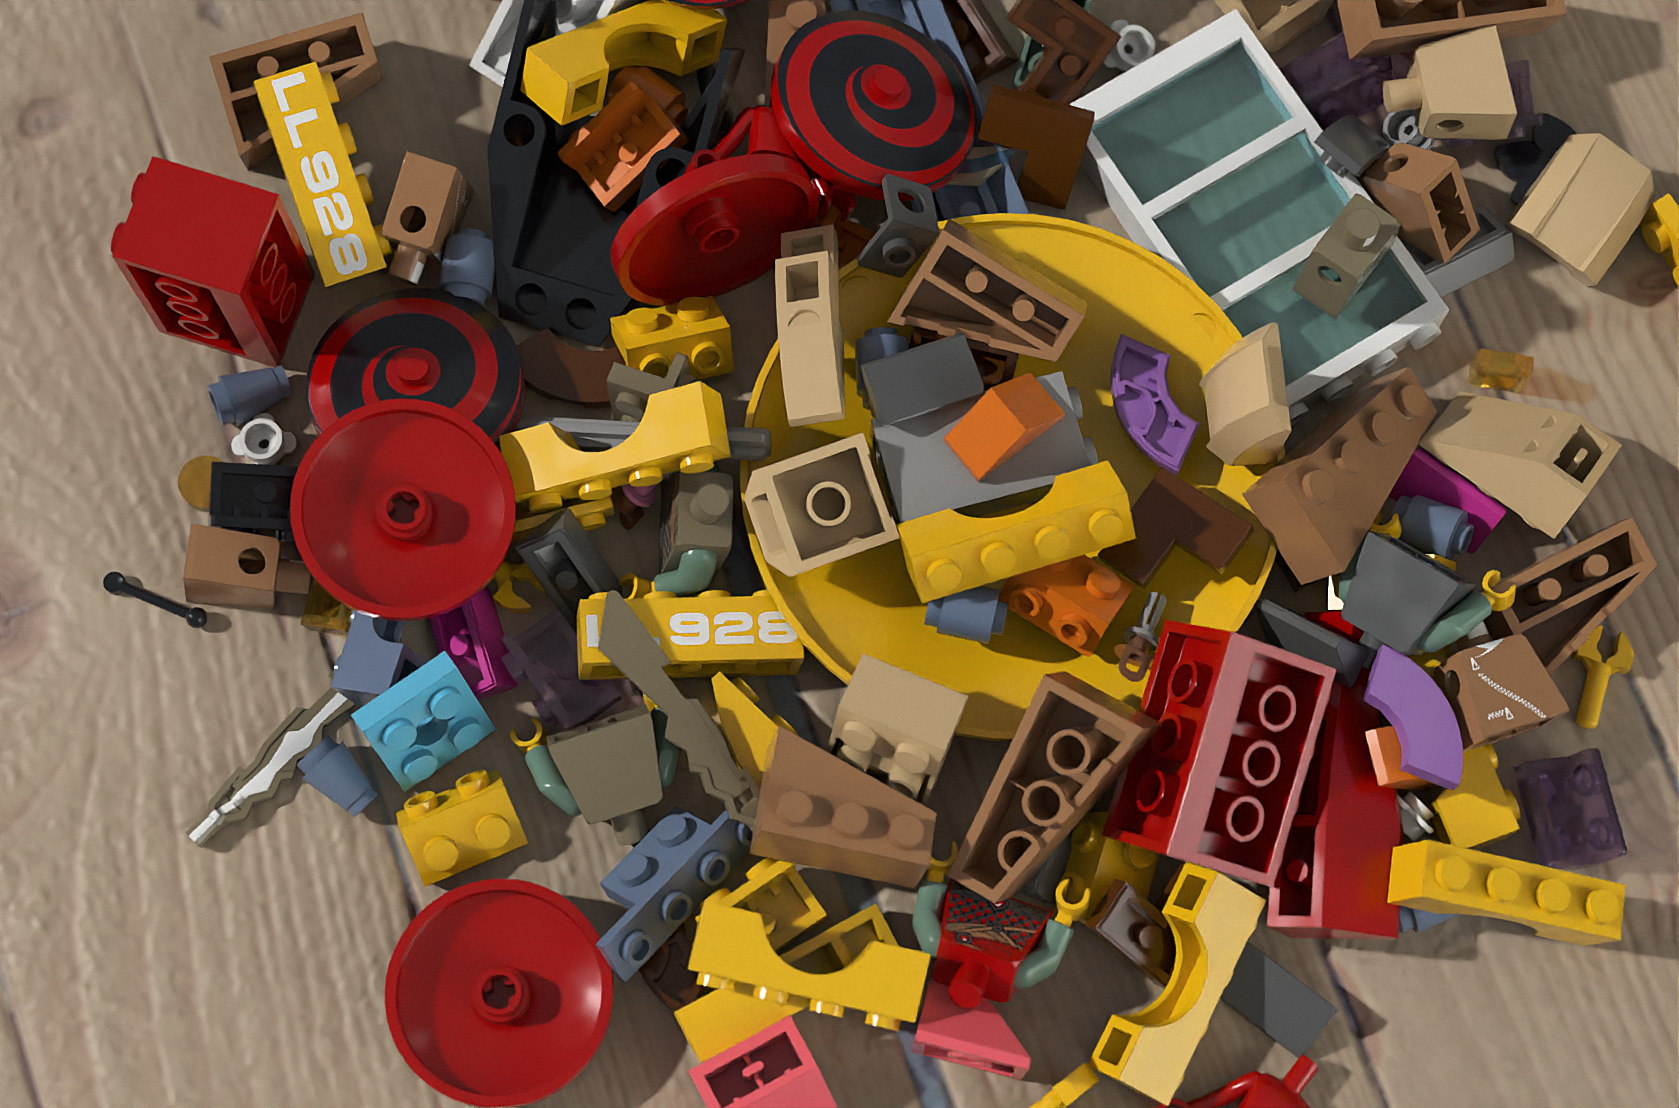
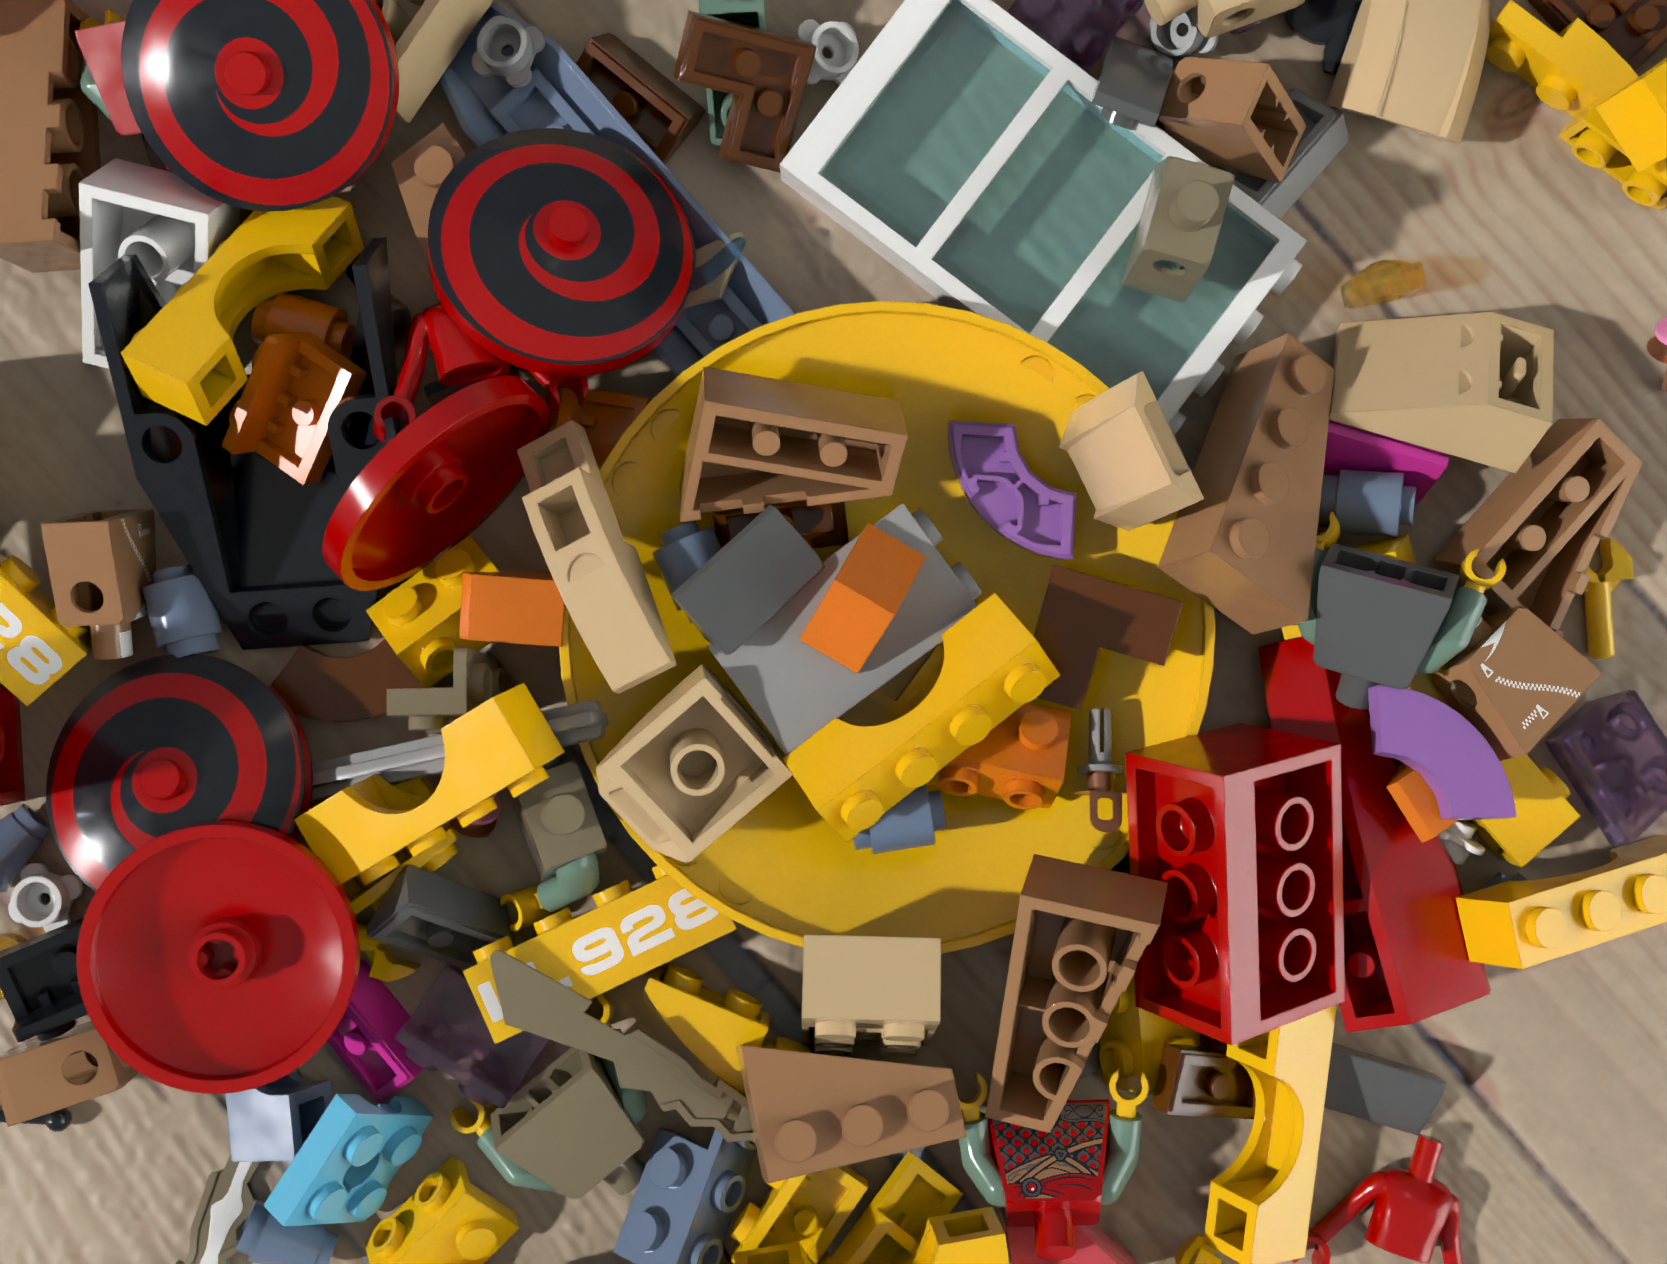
camera: 20 degrees left, 15 degrees up
(730, 348) = (511, 608): none -> orange slope
(904, 233) = (658, 406): dark grey bracket -> none
(1048, 132) = (773, 200): reddish brown tile -> none
(1311, 640) = (1288, 694): dark grey slope -> none

